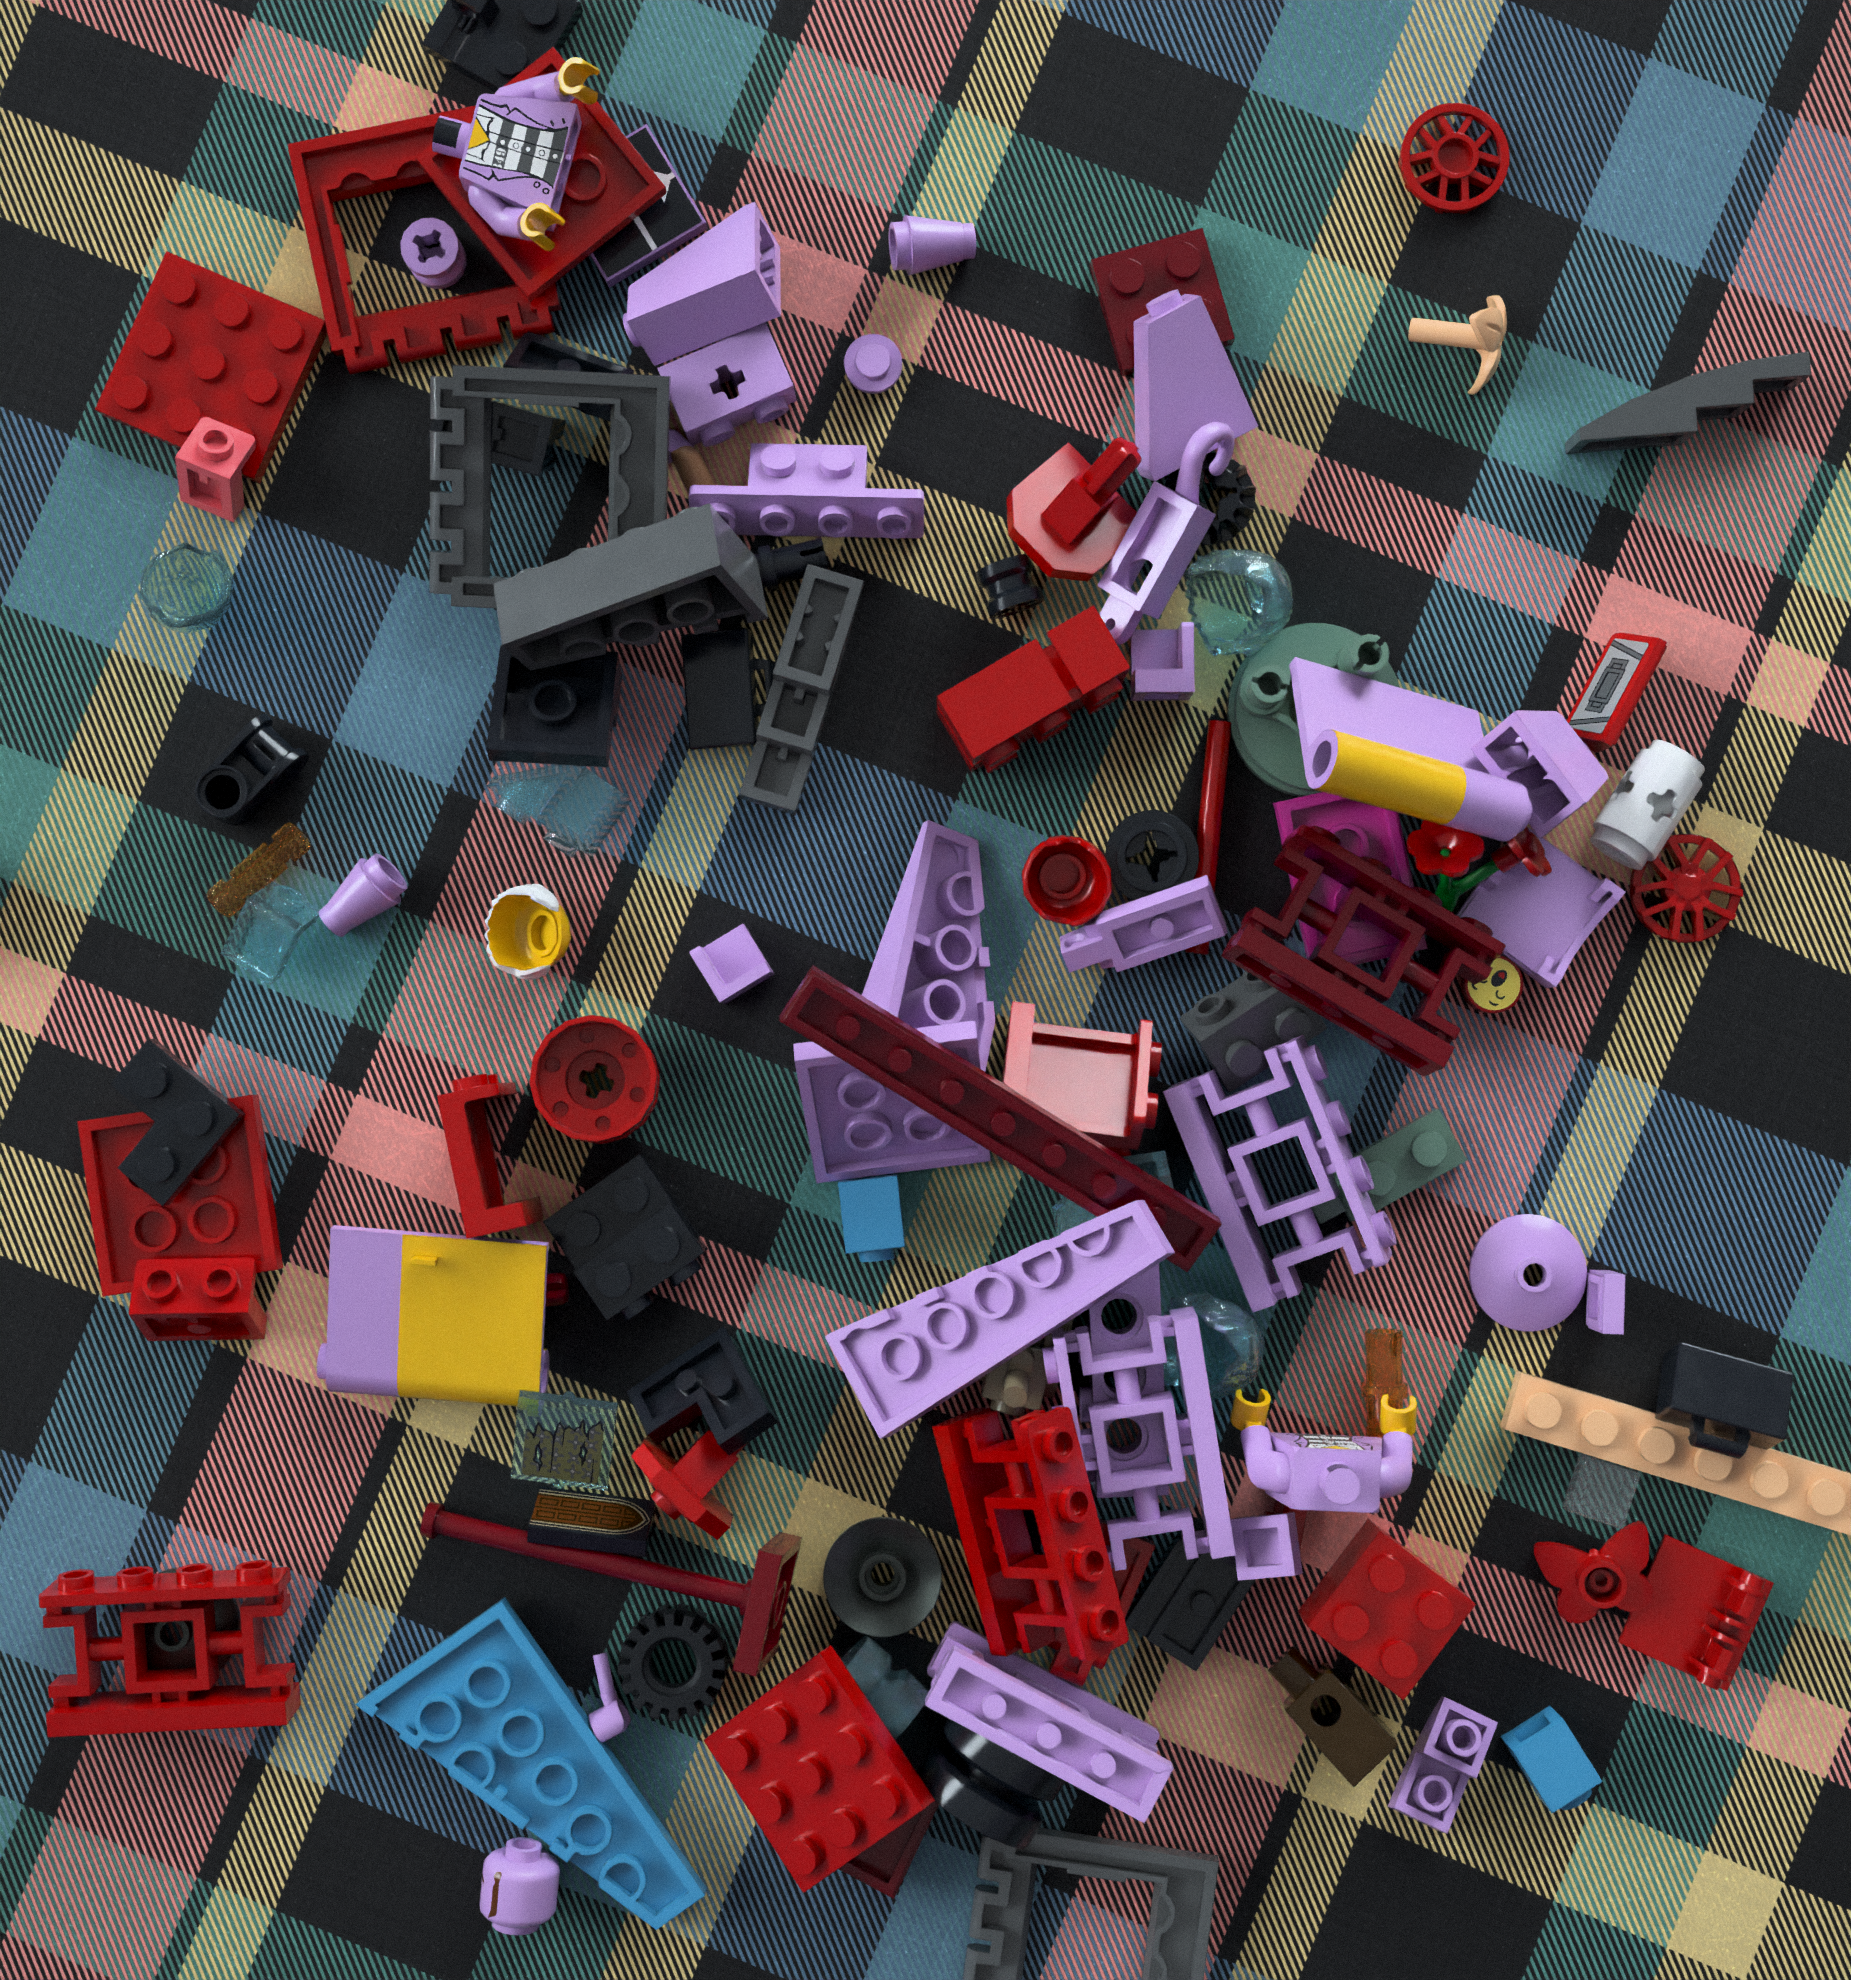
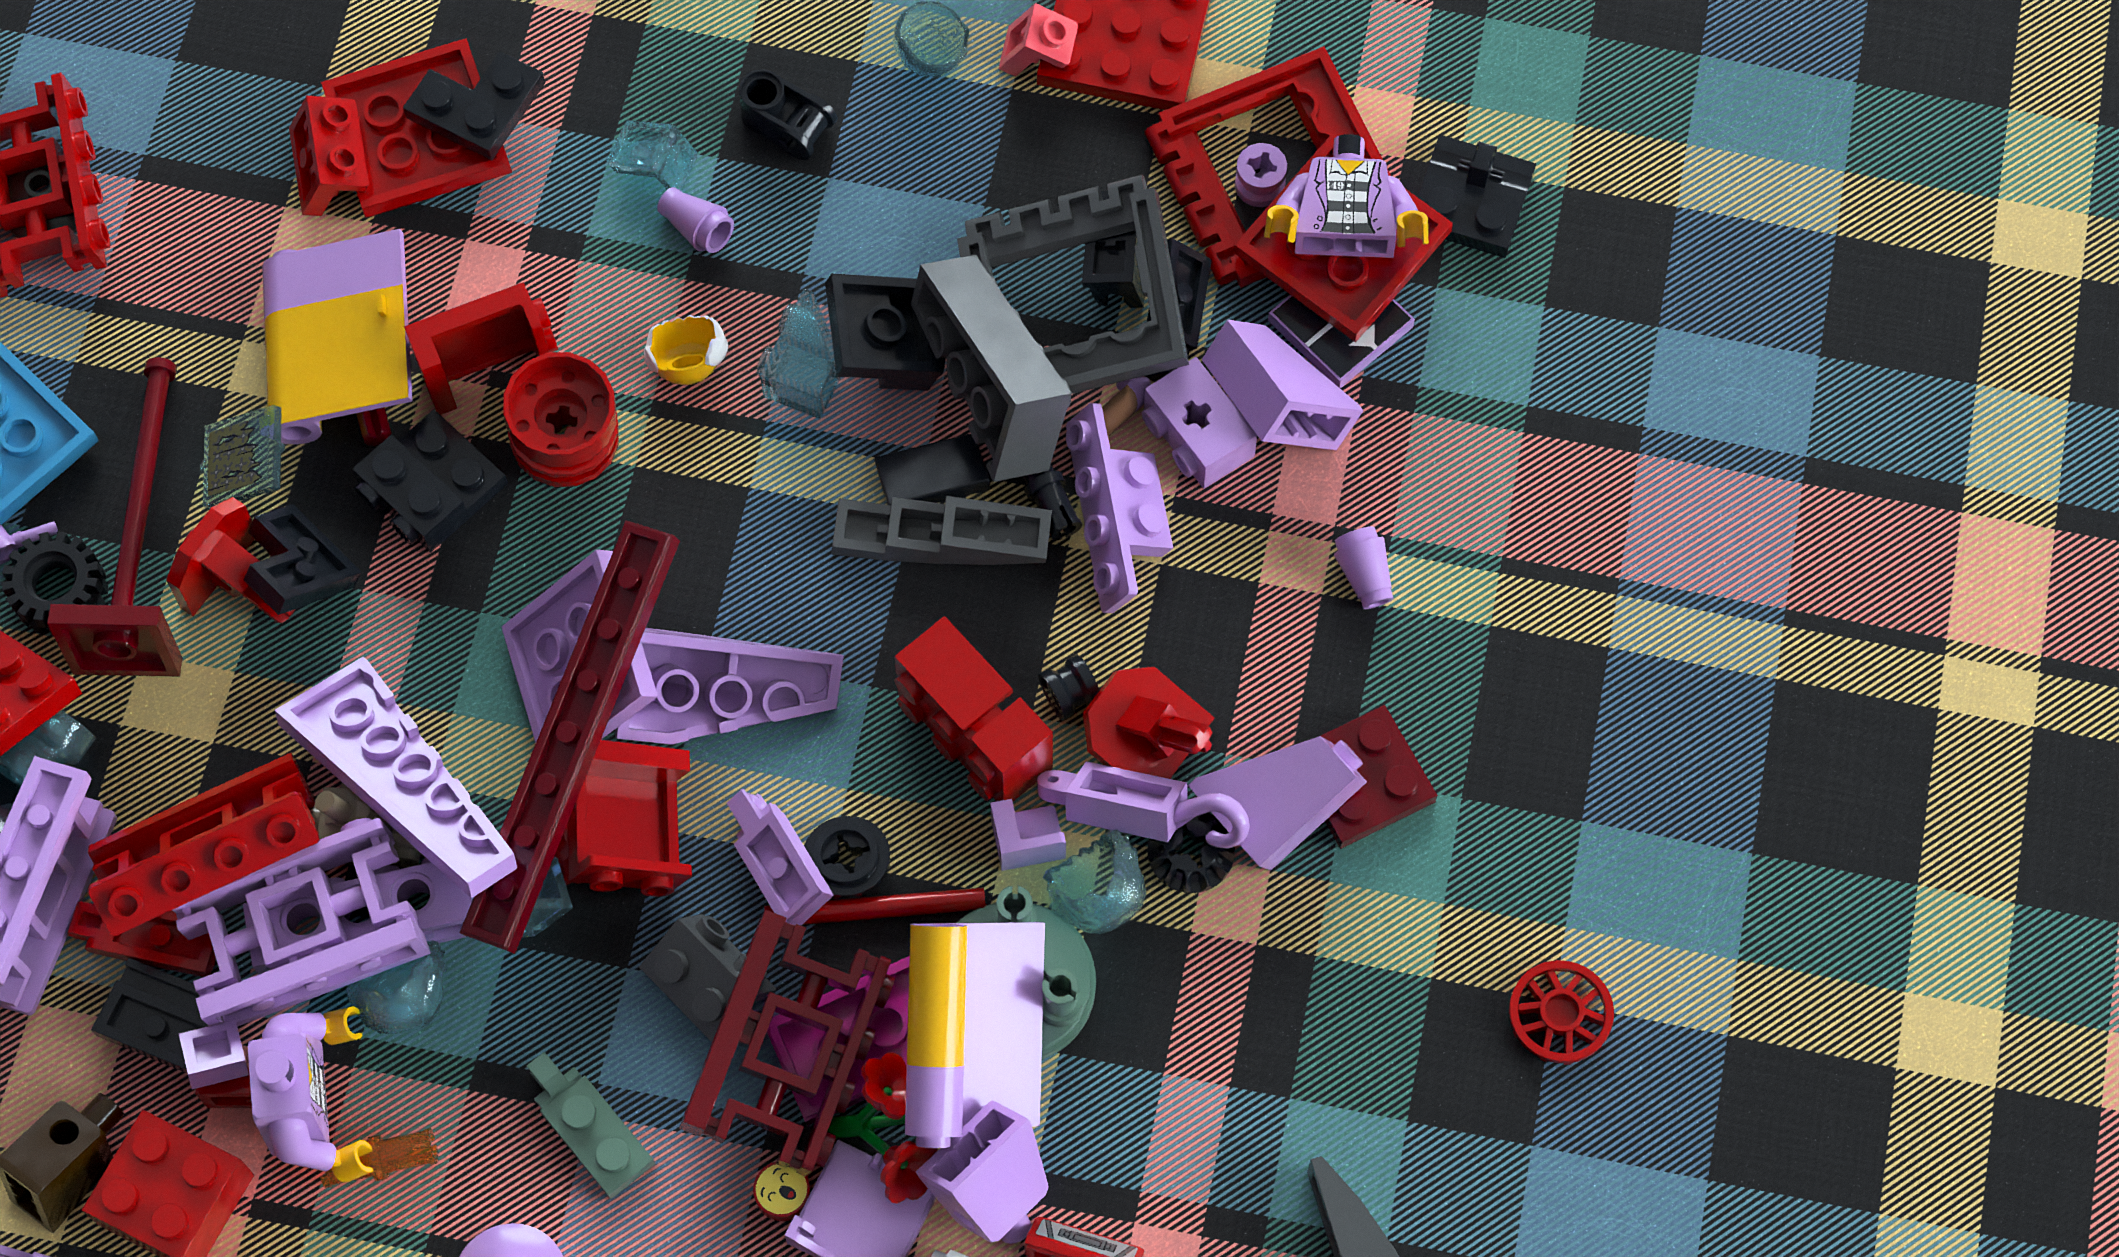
camera: 75 degrees right, 20 degrees down
(258, 869) = (706, 138): clear orange axle -> none
(591, 1521) = (172, 490): tile -> none
(732, 964) = (685, 515): lavender panel -> none
(872, 1216) = (477, 674): dark azure brick -> none
(873, 363) = (1247, 540): lavender plate -> none
(876, 1606) = (135, 725): pearl dark grey dish -> none
(1067, 880) = (810, 783): red hair -> none
(1232, 1189) = (546, 982): lavender fence -> none
(1483, 333) = (1393, 1056): light nougat plant -> none

